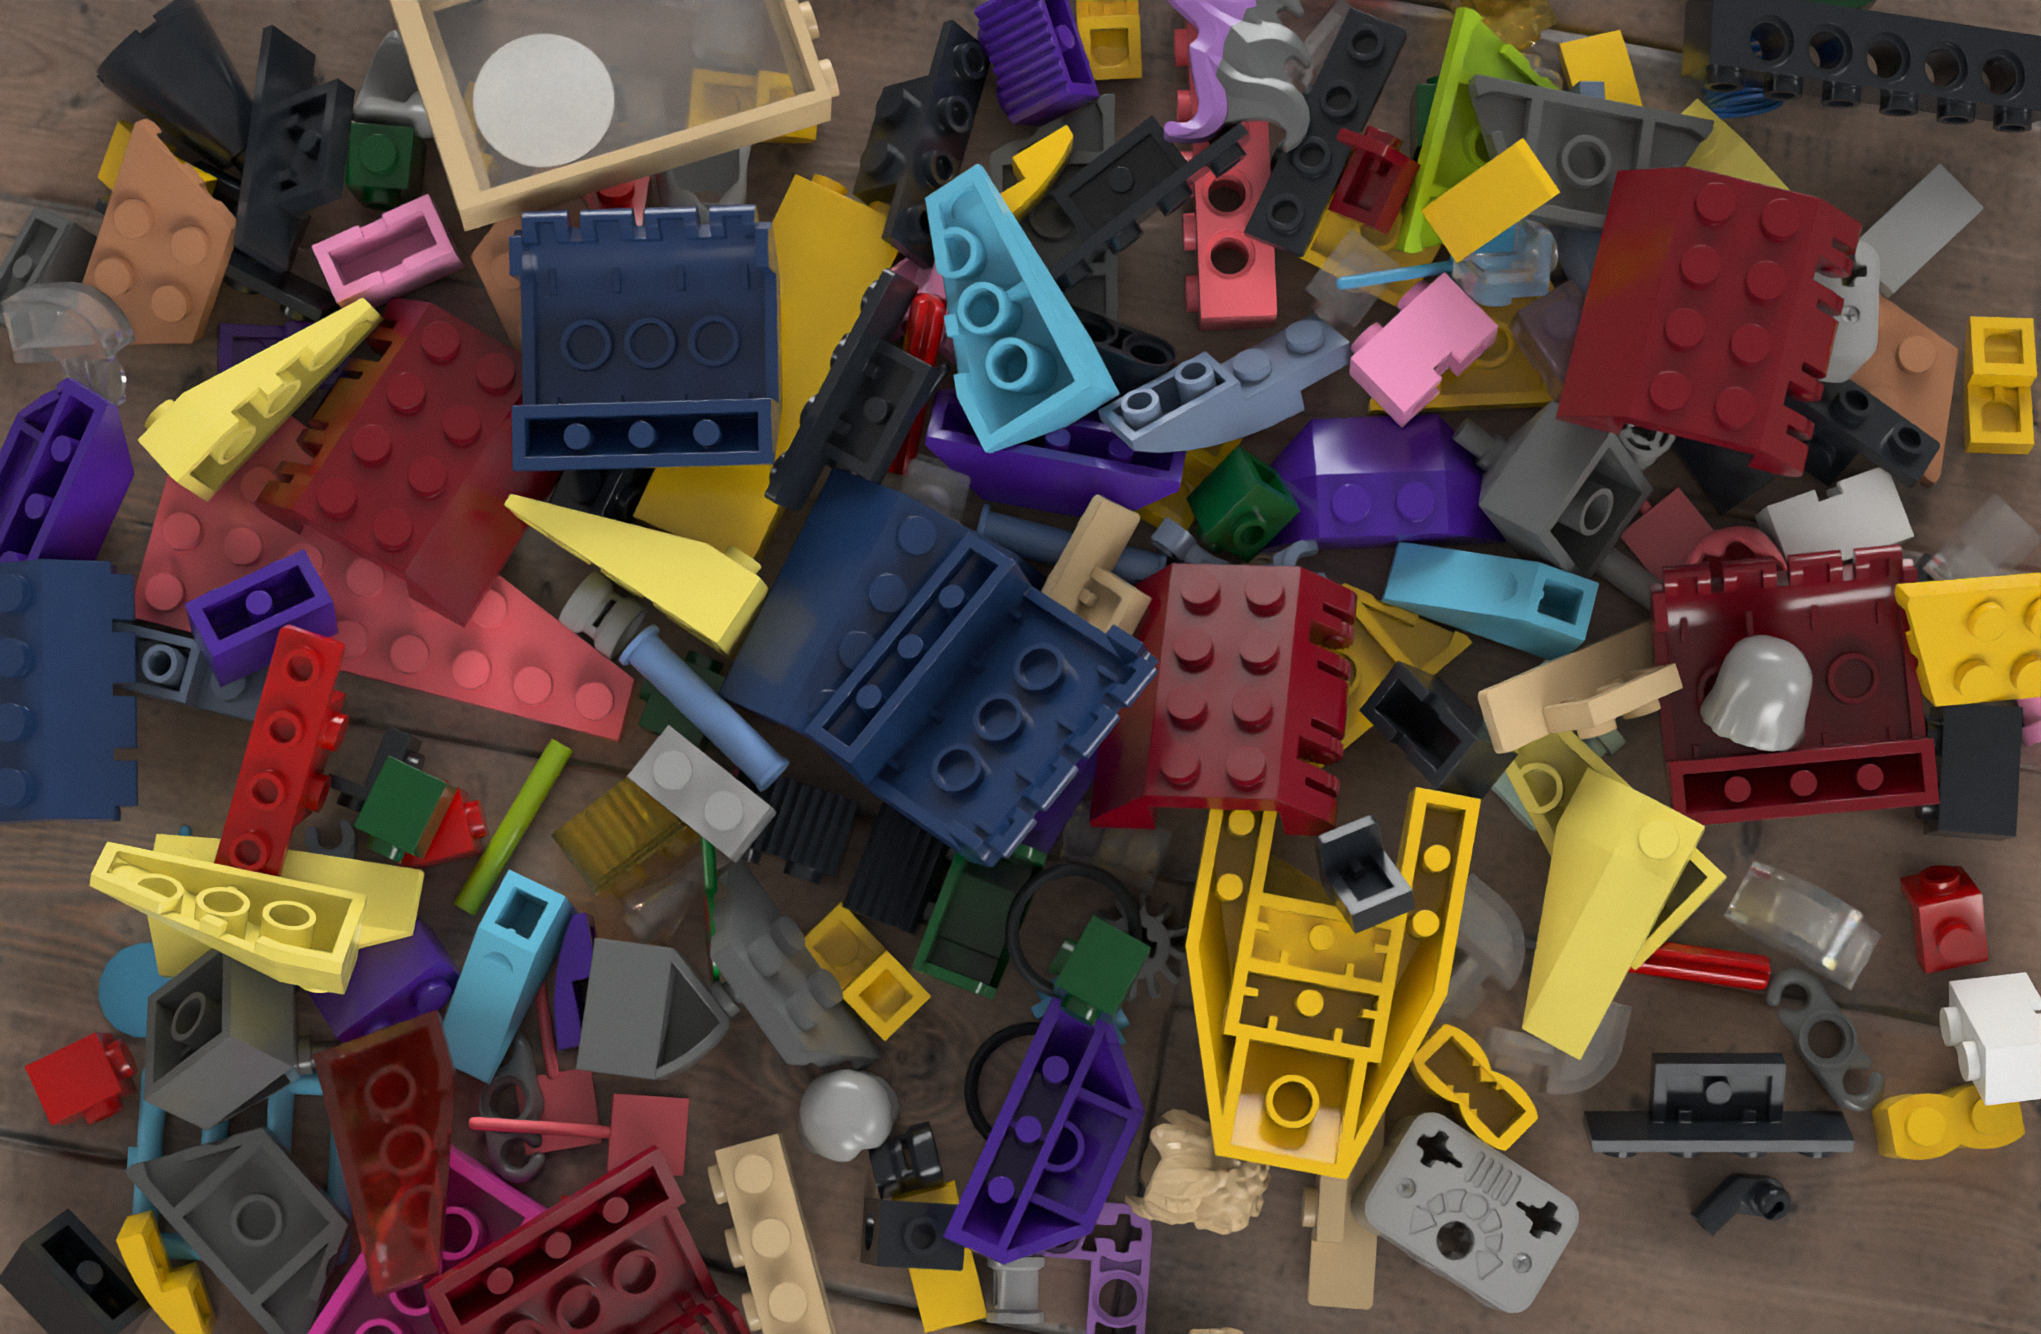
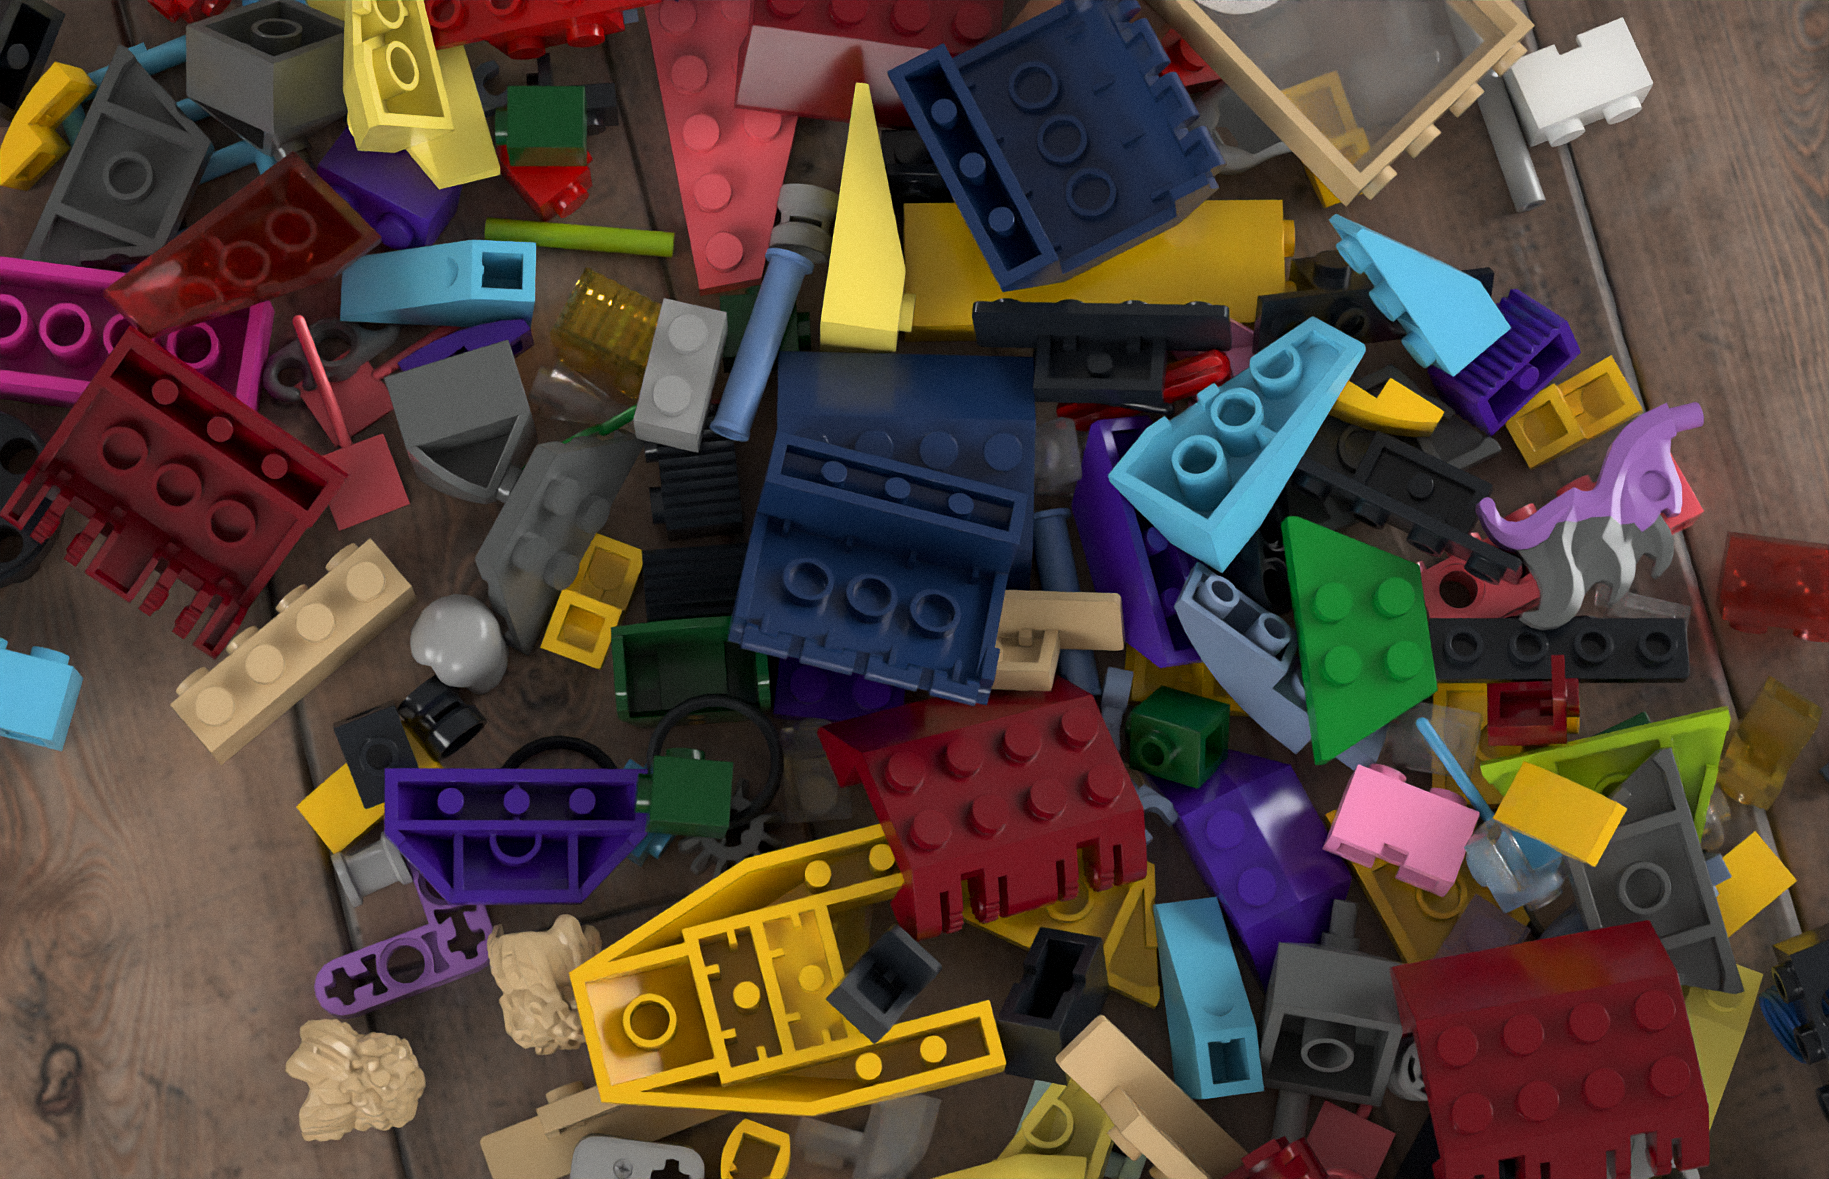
camera: 55 degrees right, 5 degrees down
(965, 83) = (1438, 306): none -> medium azure slope
(1232, 303) = (1356, 633): none -> green wing

